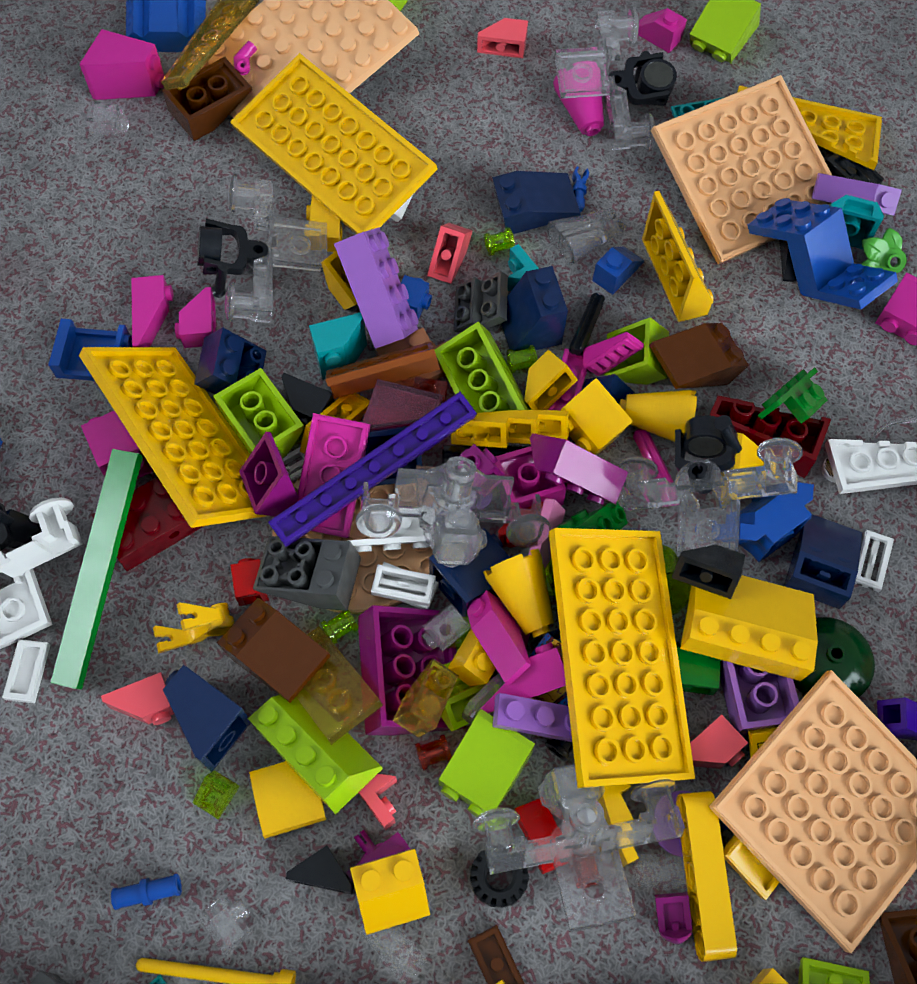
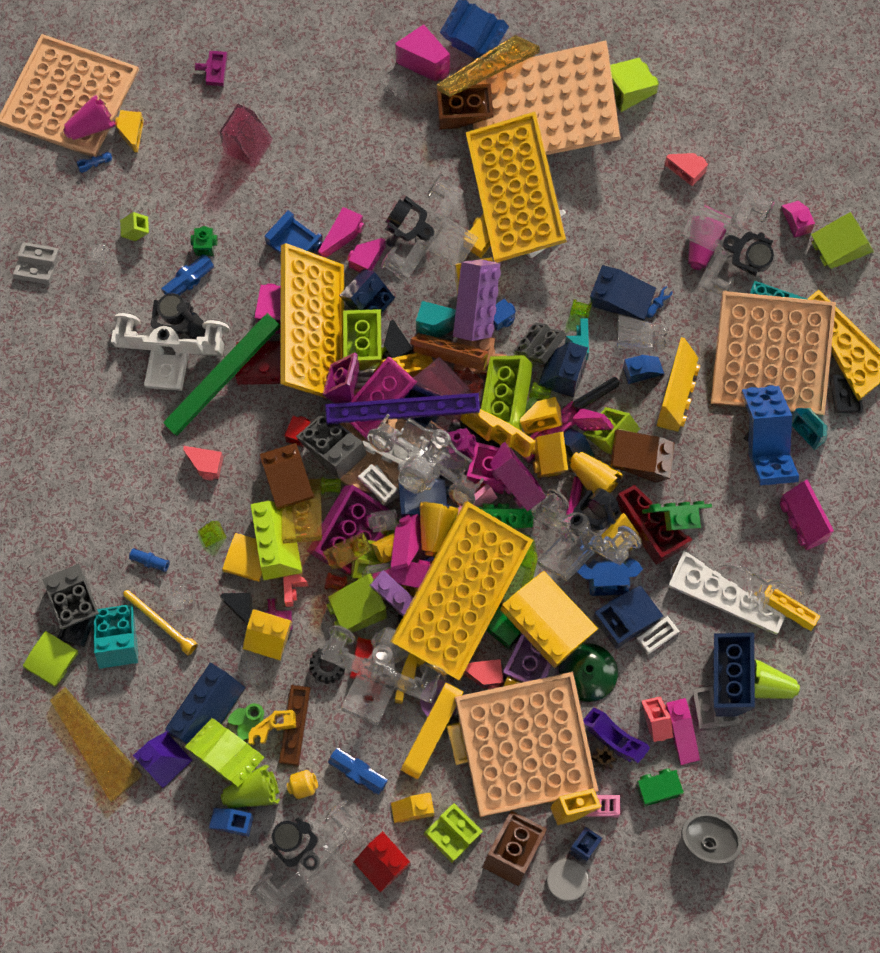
camera: 35 degrees right, 5 degrees up
(26, 671) = (154, 408): white tile -> none
(205, 716) = (229, 489): dark blue slope -> none
(207, 623) = (258, 440): yellow piece -> none
(241, 58) = (500, 91): dark pink arm -> none
(449, 252) = (545, 297): coral slope -> none
(674, 917) = (401, 741): magenta plate -> none
(710, 569) = (543, 577): black slope -> none
(831, 188) = (829, 410): medium lavender slope -> none
(882, 250) = (816, 457): bright green plate -> none

